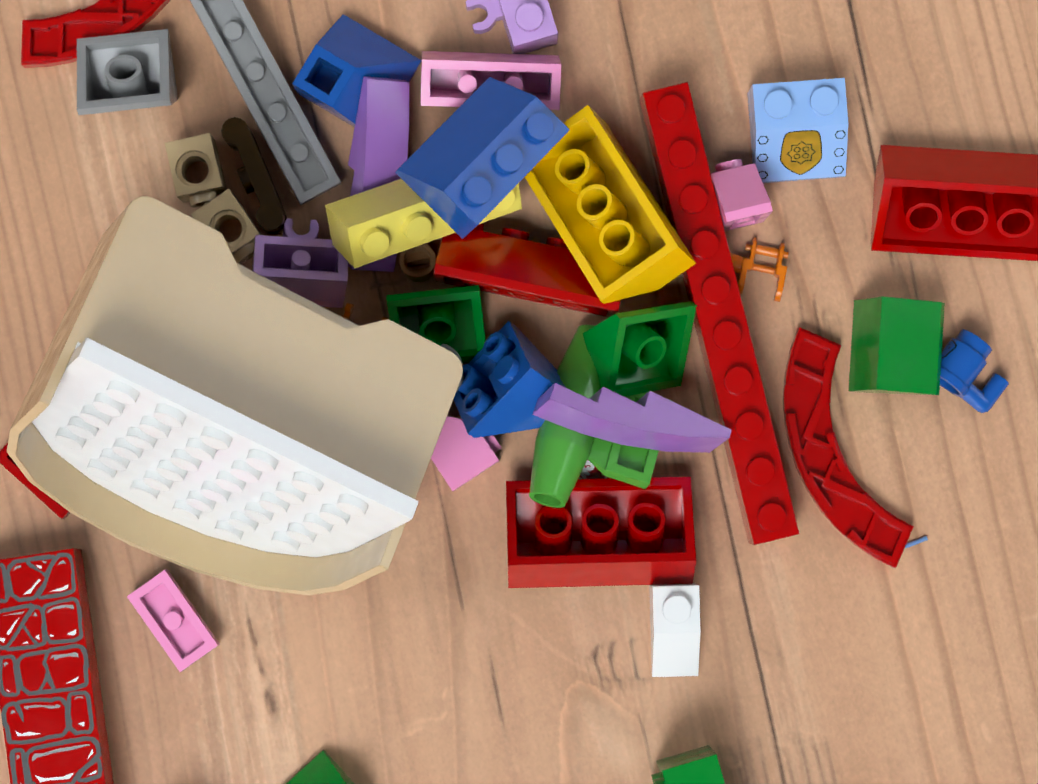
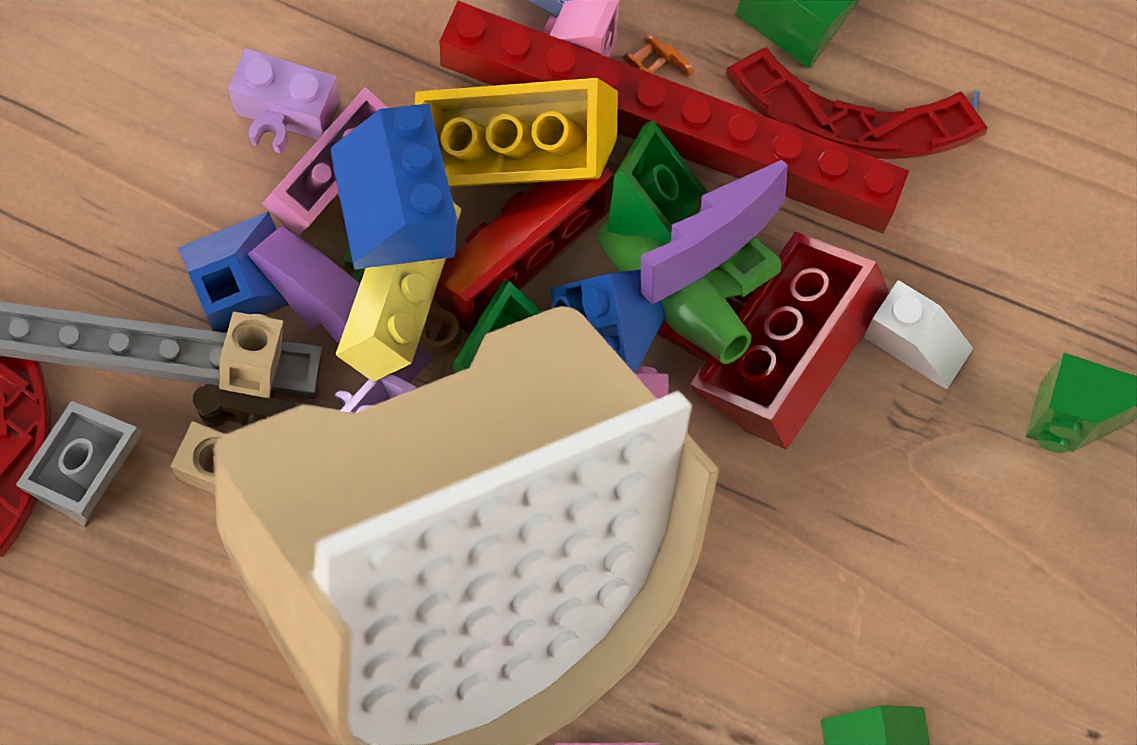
camera: 55 degrees left, 15 degrees down
(270, 146) = (251, 354): none -> tan brick

